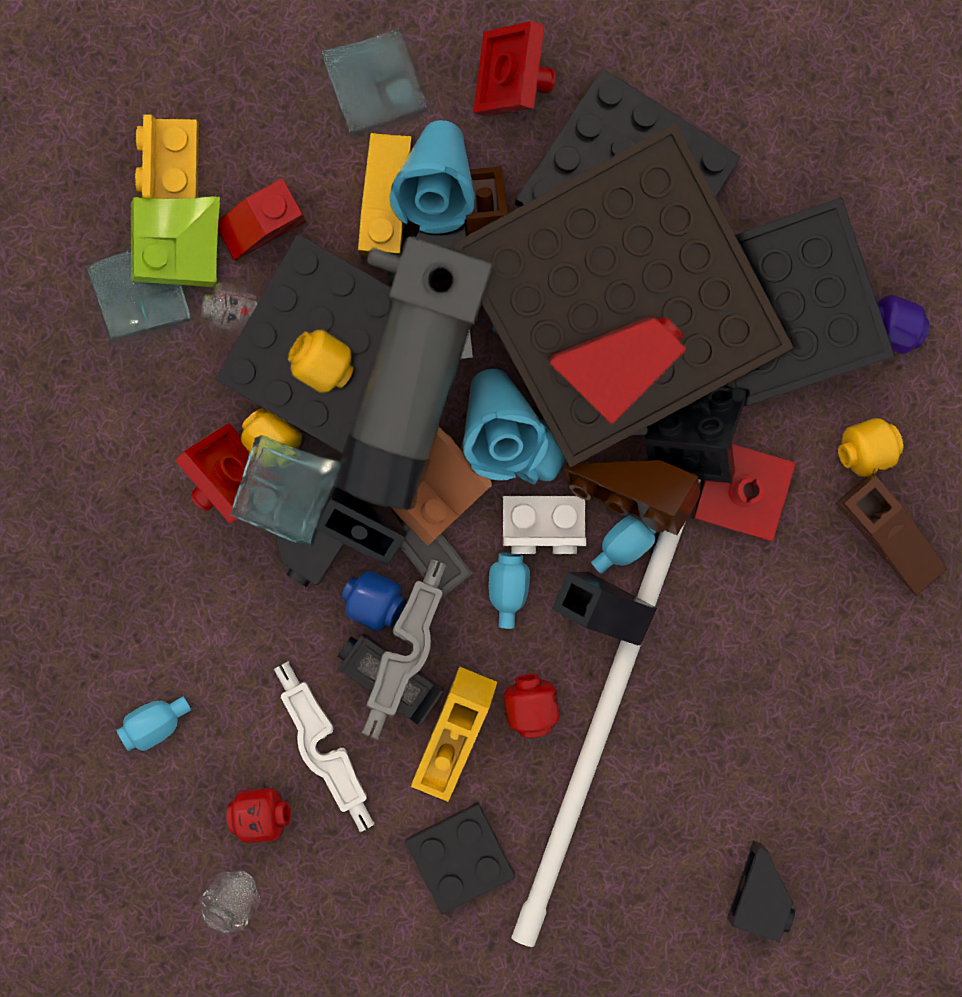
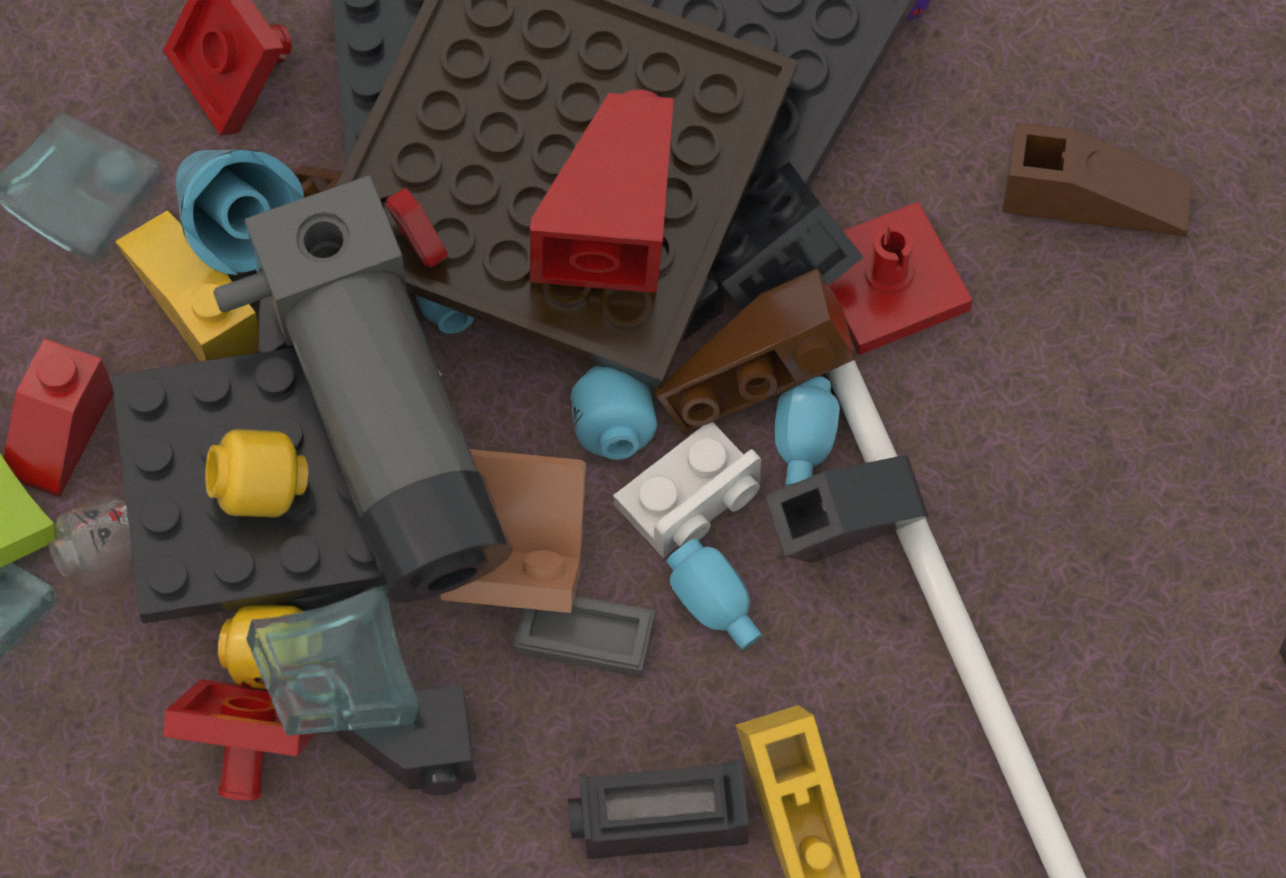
camera: 40 degrees left, 25 degrees down
(361, 525) = (466, 643): black slope -> none
(373, 600) = (560, 733): blue head -> none
(398, 669) = (661, 769): light grey piece -> none
(501, 428) = (547, 393): medium azure cone -> none
(509, 287) = (416, 228): none -> red tile
(531, 706) = (865, 700): red head -> none
(870, 447) = (983, 119): yellow head -> none

